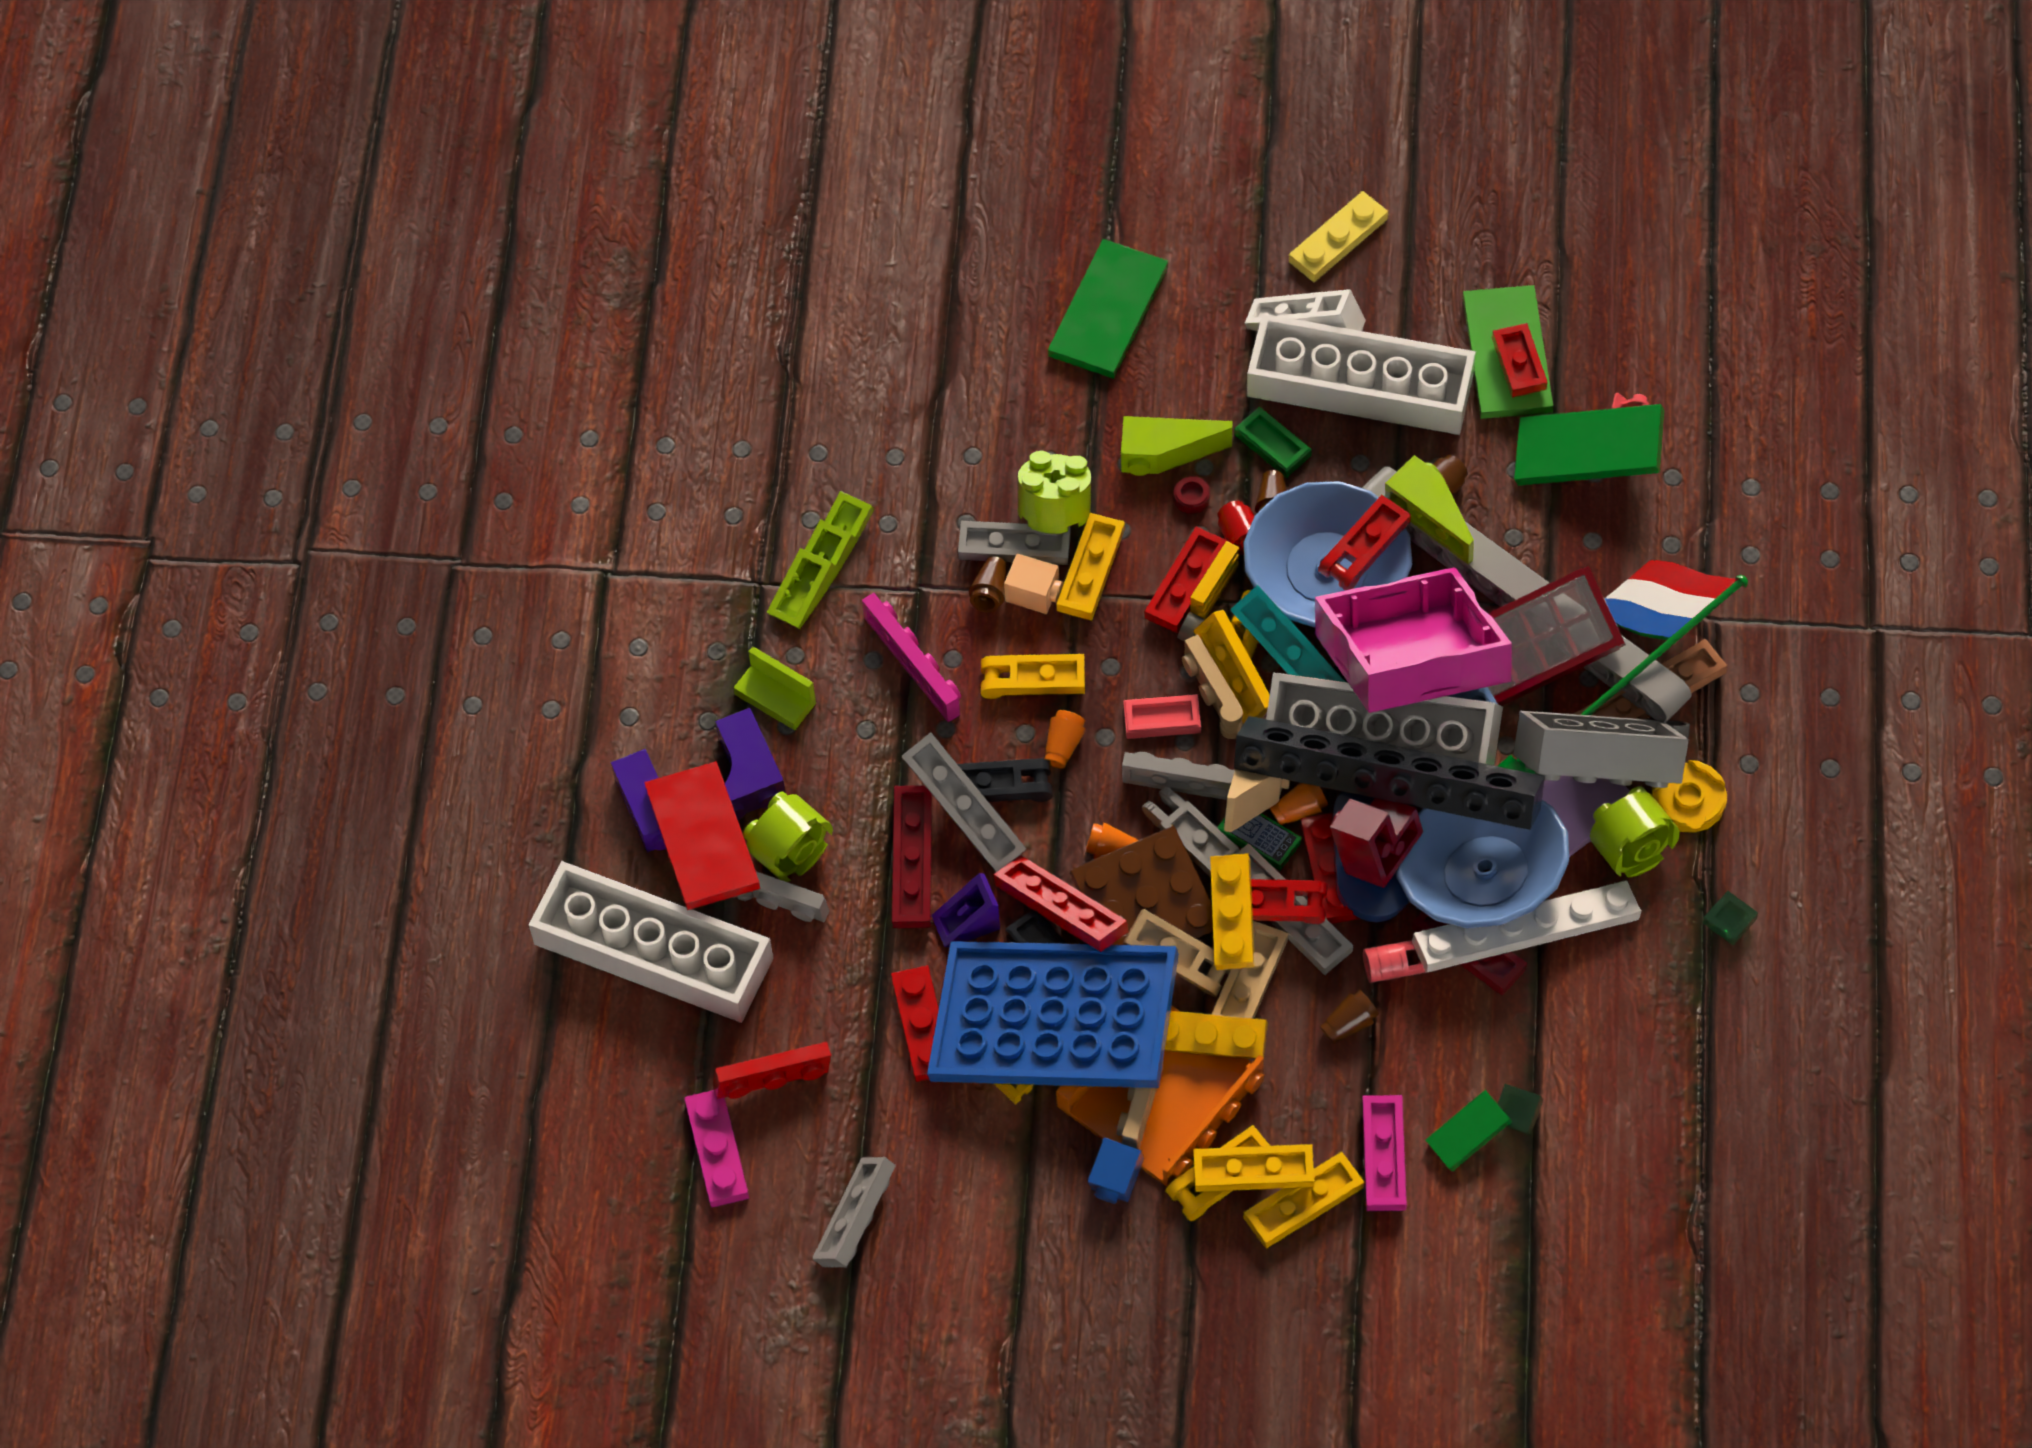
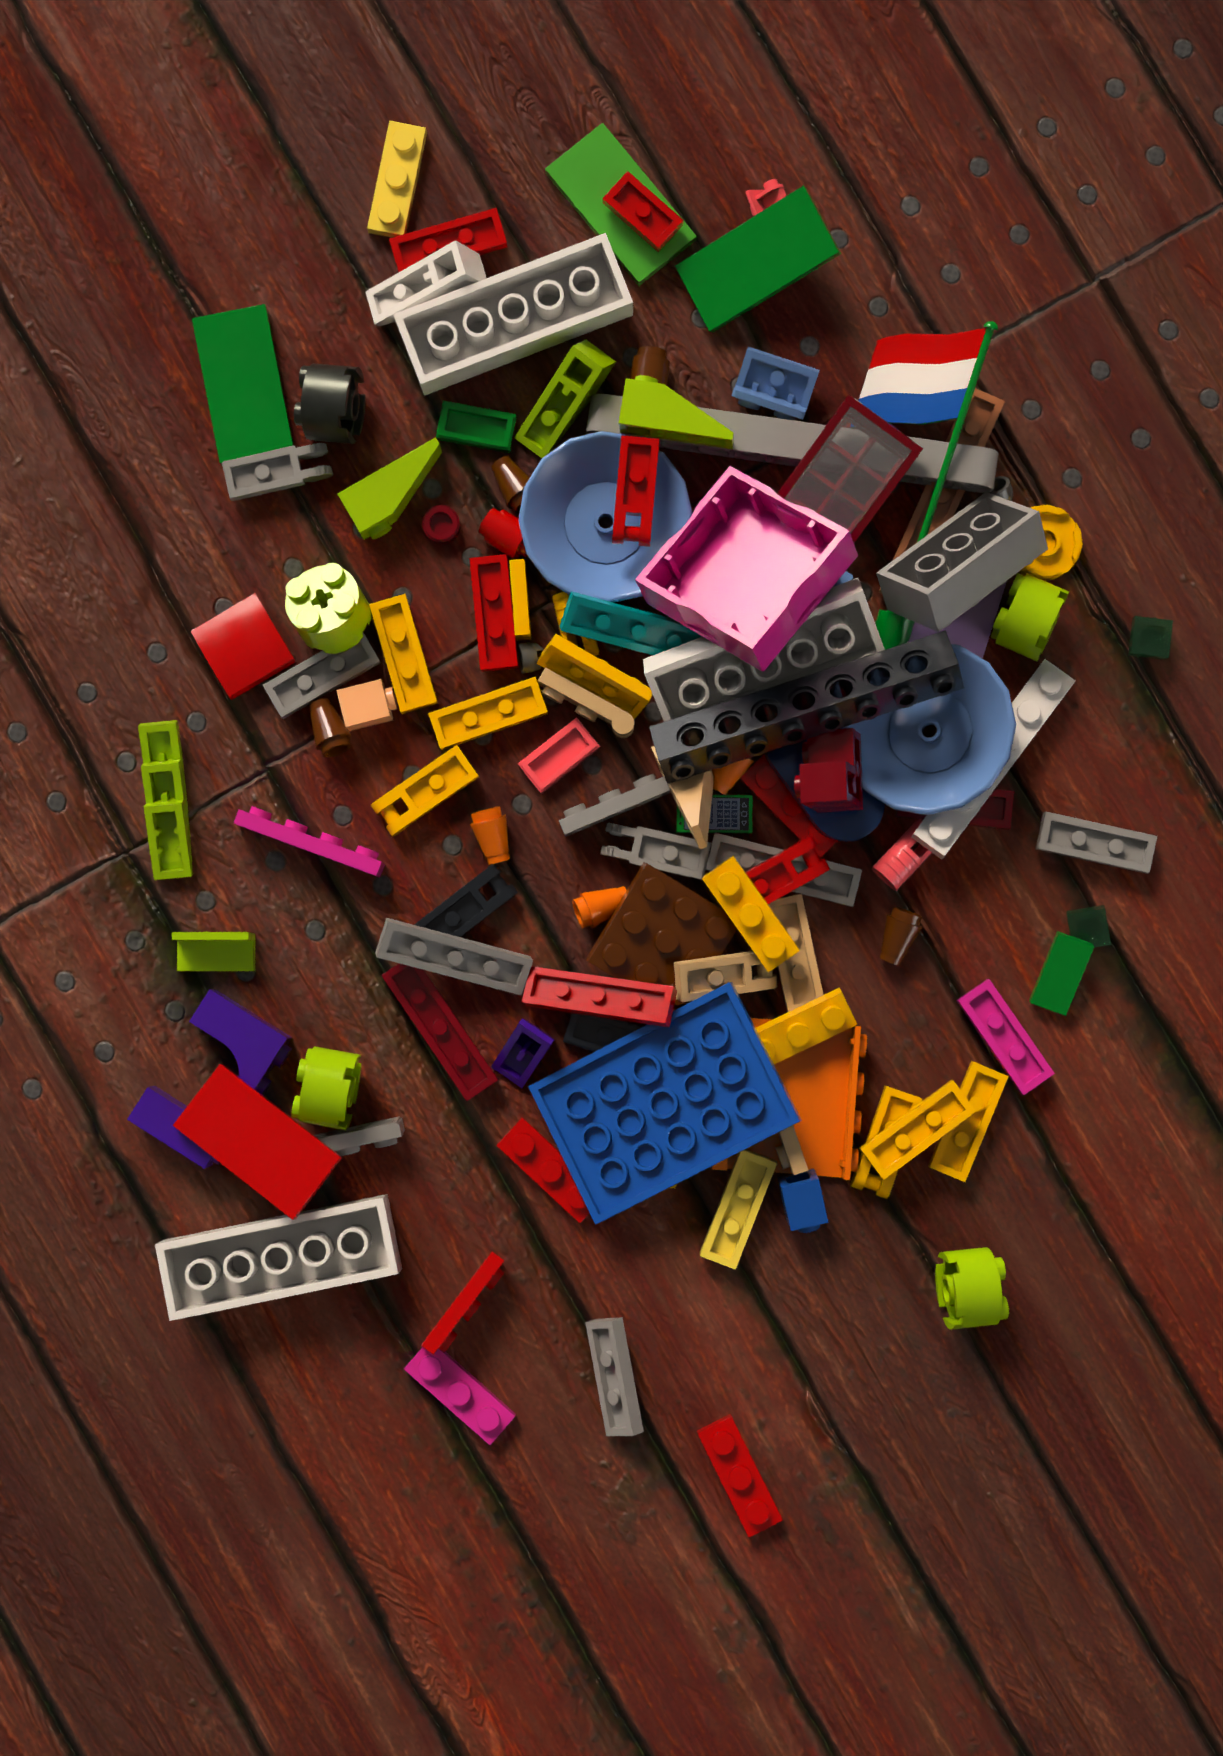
camera: 35 degrees left, 25 degrees up
(901, 1364) = (739, 1475): none -> red plate
(966, 487) = (243, 646): none -> red slope
(1056, 1144) = (738, 1208): none -> light yellow plate
(1087, 379) = (273, 471): none -> light grey hinge
(1127, 648) = (488, 713): none -> yellow plate
(1167, 352) = (330, 403): none -> pearl dark grey brick
(1207, 1324) = (971, 1288): none -> lime brick
(1363, 454) = (565, 397): none -> lime slope
(1376, 304) = (477, 231): none -> red plate
(1541, 544) = (775, 384): none -> medium blue bracket
(1572, 1048) = (1096, 842): none -> light grey plate

